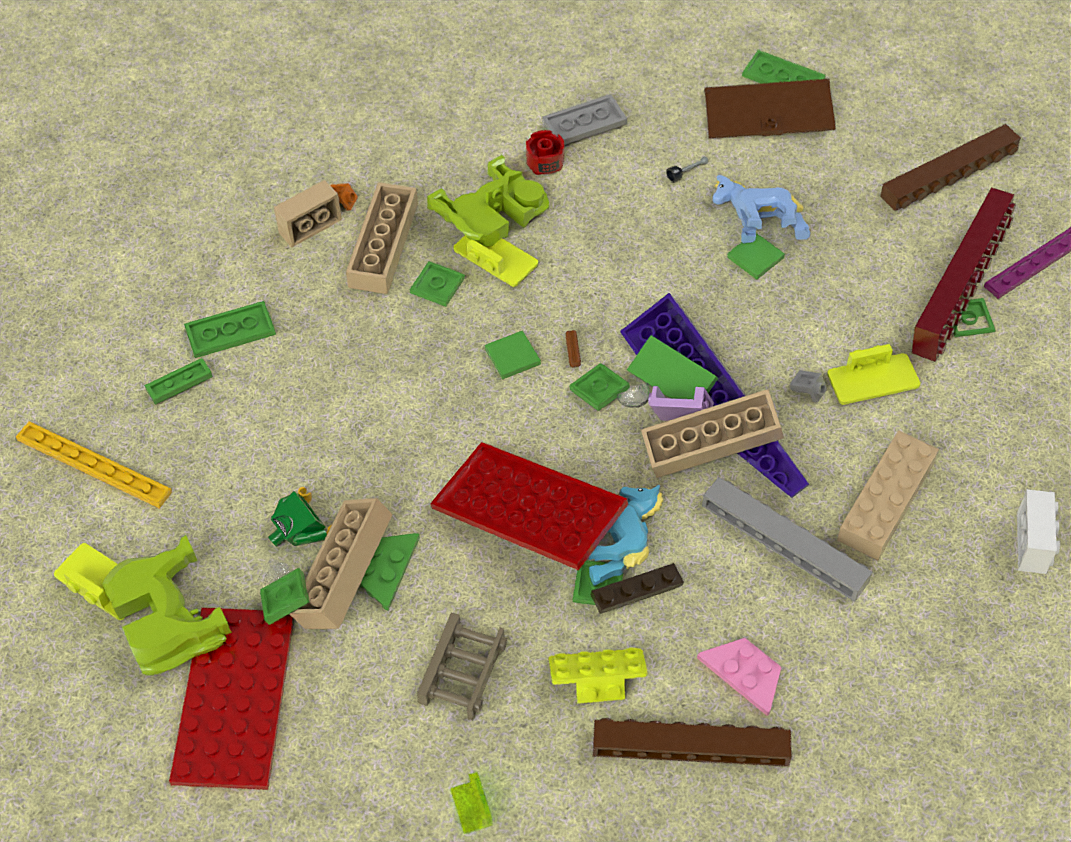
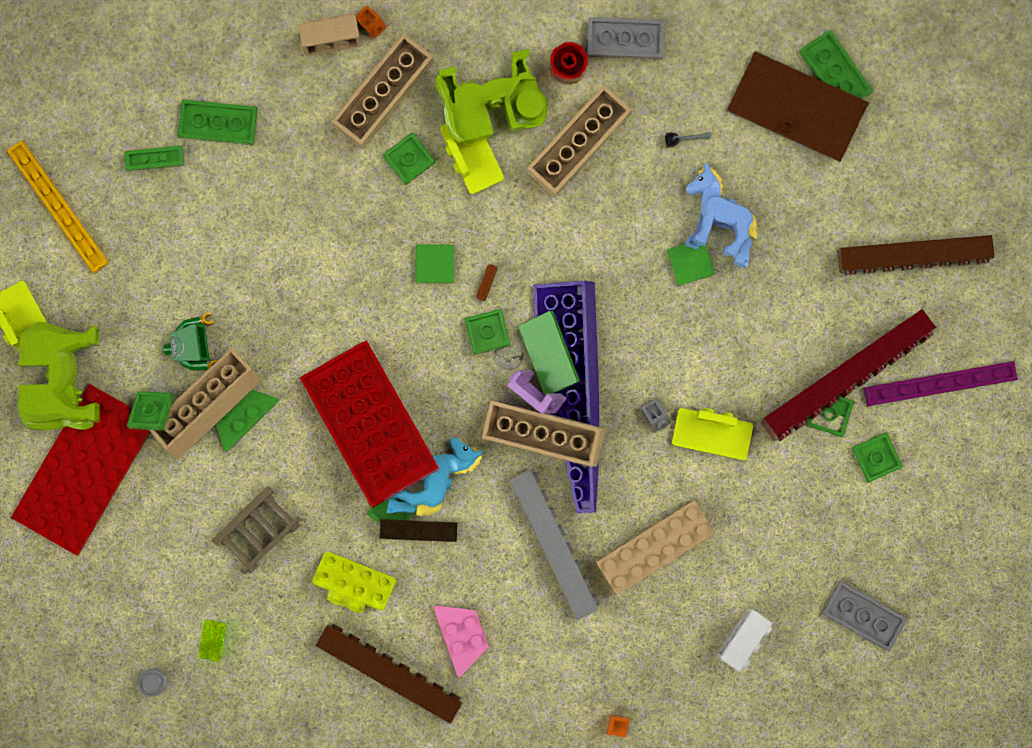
camera: 20 degrees right, 30 degrees up
(591, 203) = (579, 141): none -> tan brick
(967, 678) = (617, 725): none -> orange panel
(1039, 333) = (877, 457): none -> bright green tile

